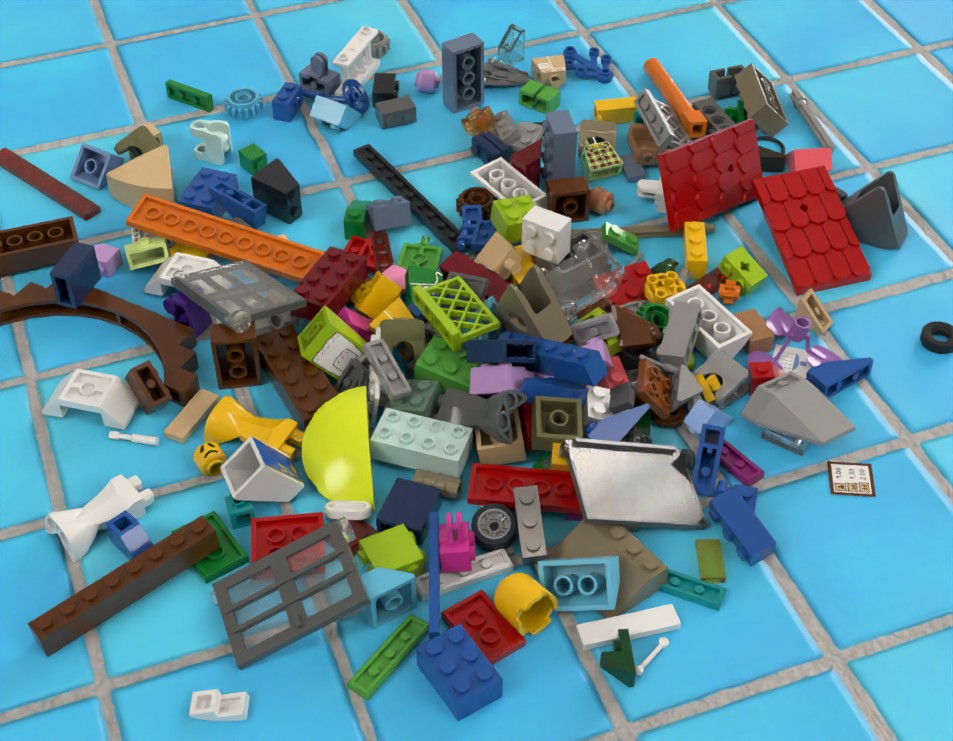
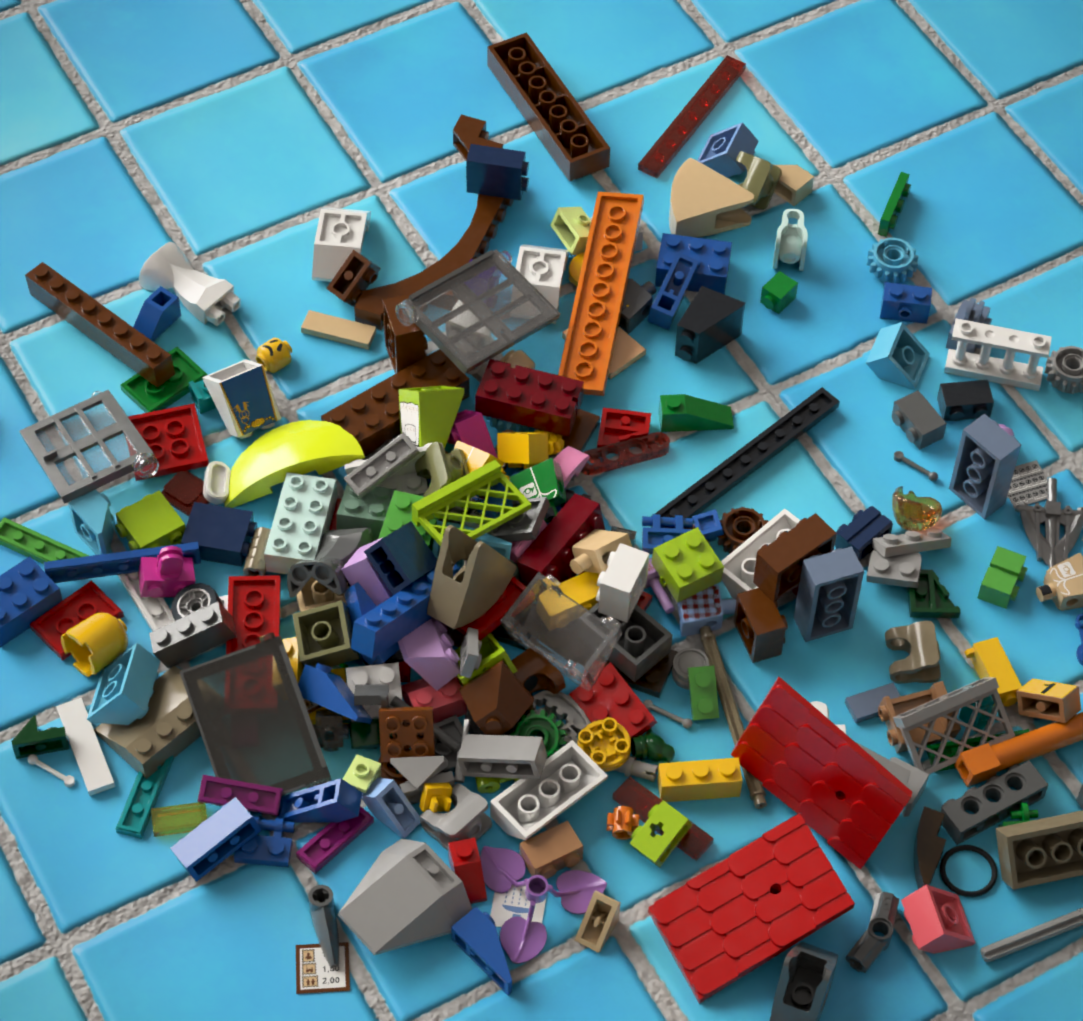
camera: 80 degrees right, 10 degrees up
(108, 259) = (562, 192): lavender slope -> none
(135, 438) = (301, 291): white piece -> none
(233, 420) = (313, 392): yellow hips -> none
(349, 97) = (933, 360): blue dish -> none
(388, 213) = (695, 441): sand blue brick -> none
(420, 255) = (623, 488): bright green plate -> none
(421, 130) = (899, 456): none -> dark grey hinge
(537, 151) = (781, 562): none -> reddish brown brick
(600, 160) = (866, 656): yellowish green torso -> none
(601, 201) = (779, 662): nougat head -> none
(651, 79) = (1048, 700): none -> medium nougat brick
(684, 424) = (362, 773): none -> yellowish green bracket
(695, 510) = (252, 796): none -> magenta tile
(804, 470) = (325, 922): none -> dark grey piece

